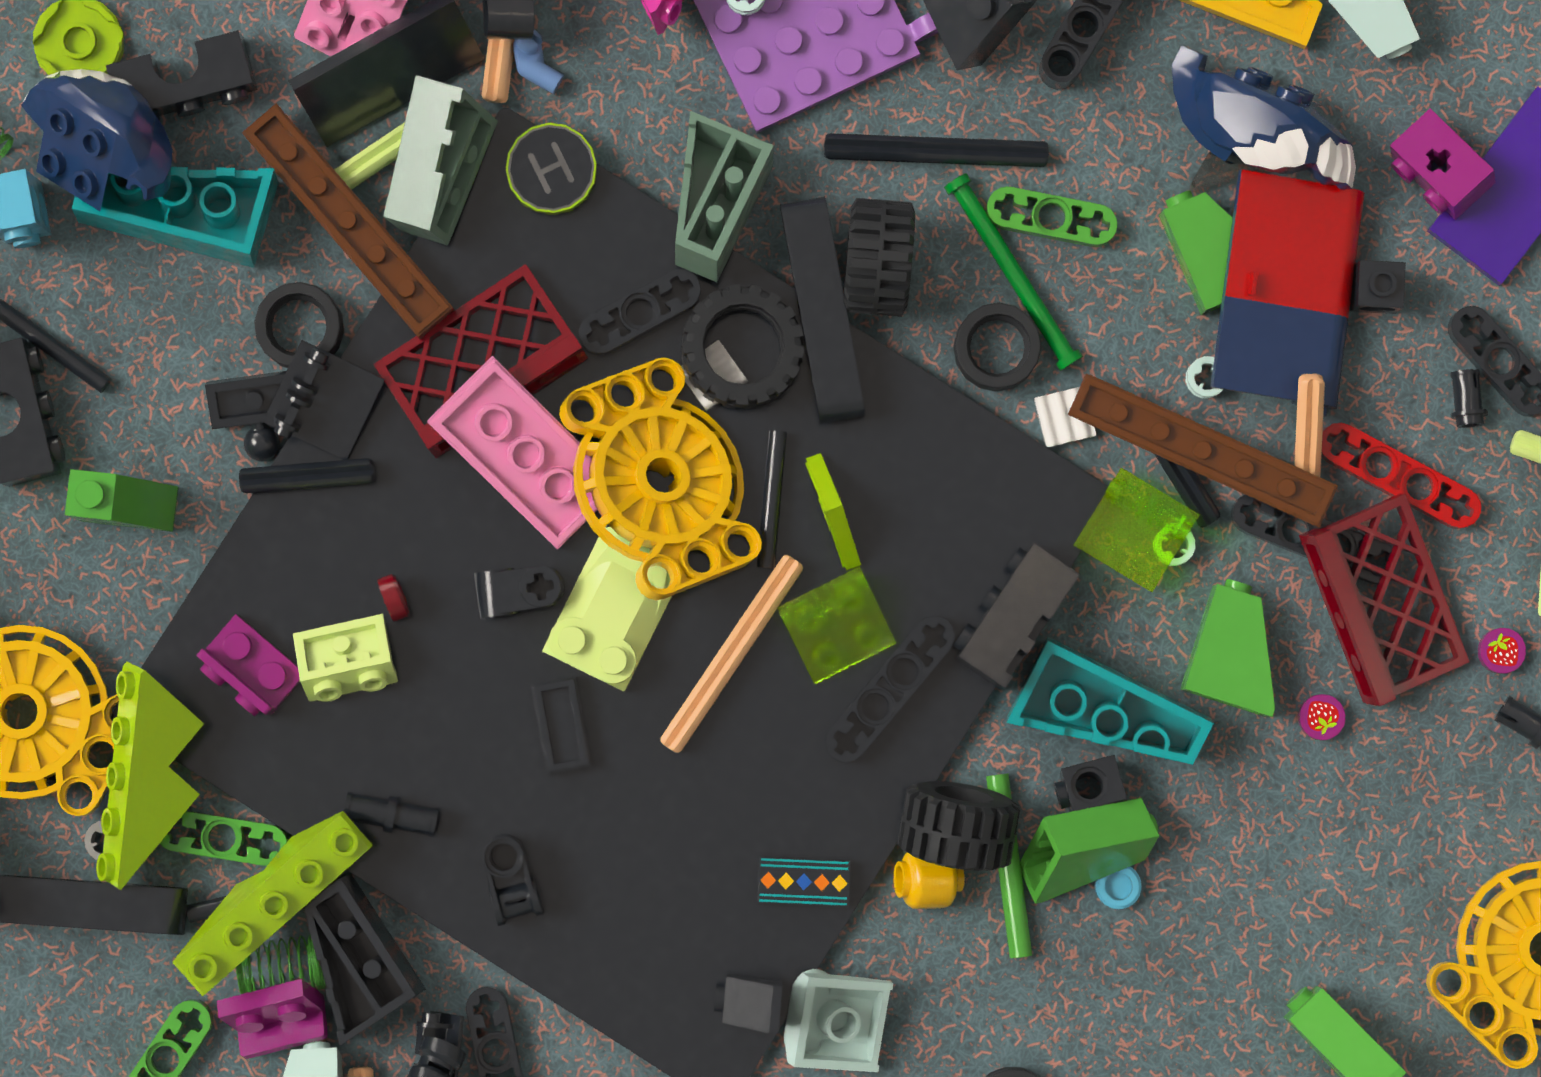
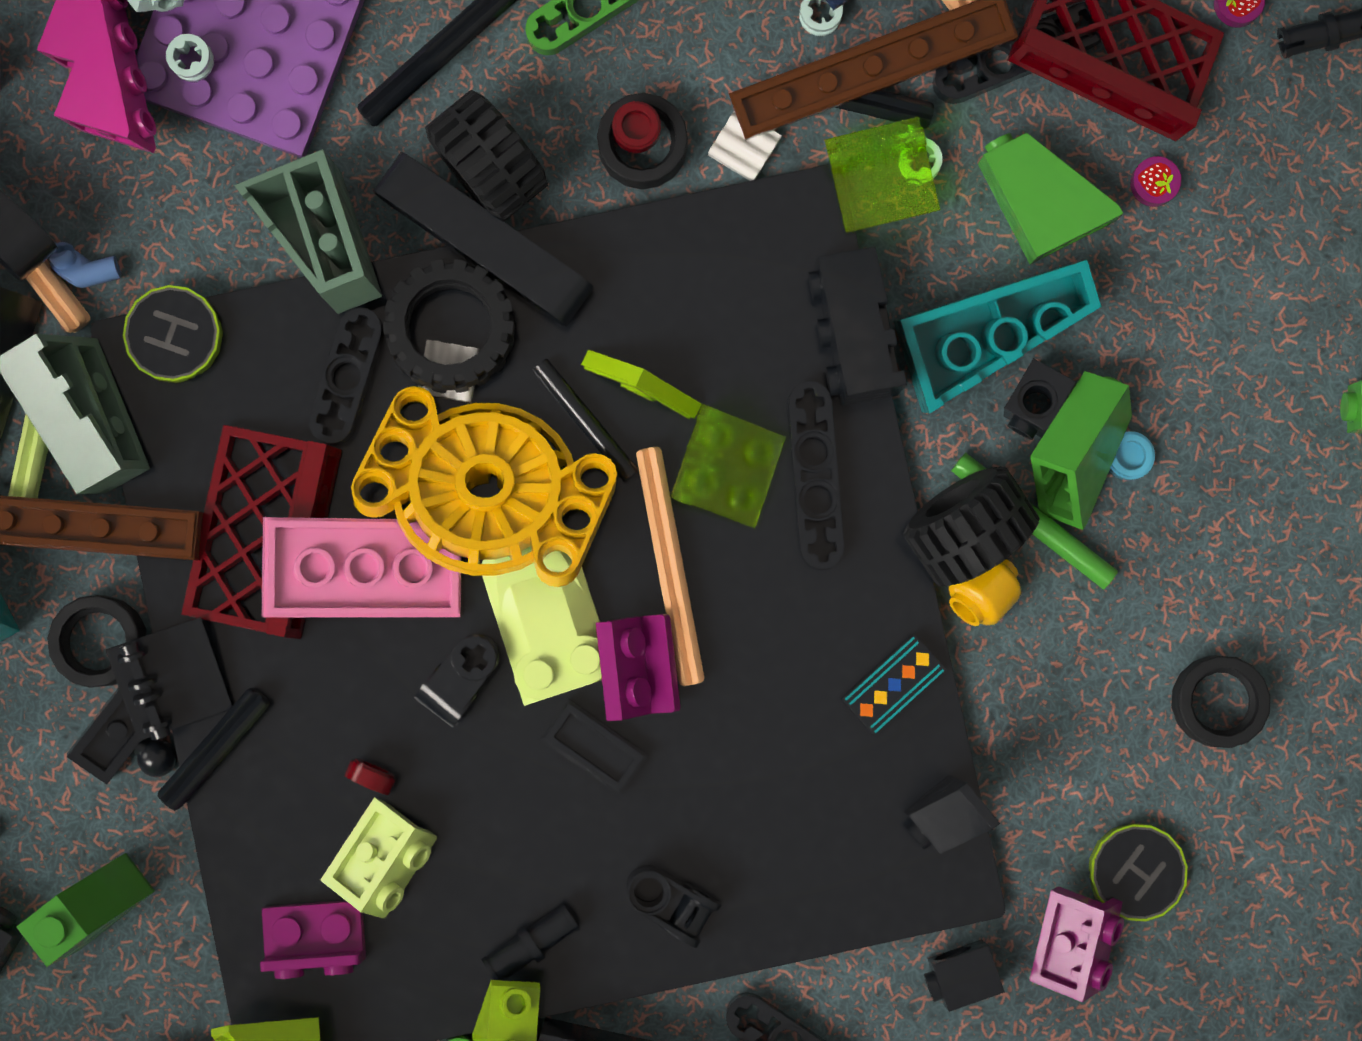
camera: 40 degrees left, 0 degrees up
(643, 699) = (638, 666): none -> magenta bracket
(836, 1021) = (1022, 766): light aqua slope -> none
(1000, 335) = (636, 127): none -> dark red tile
(1013, 272) = (598, 73): green bar -> none

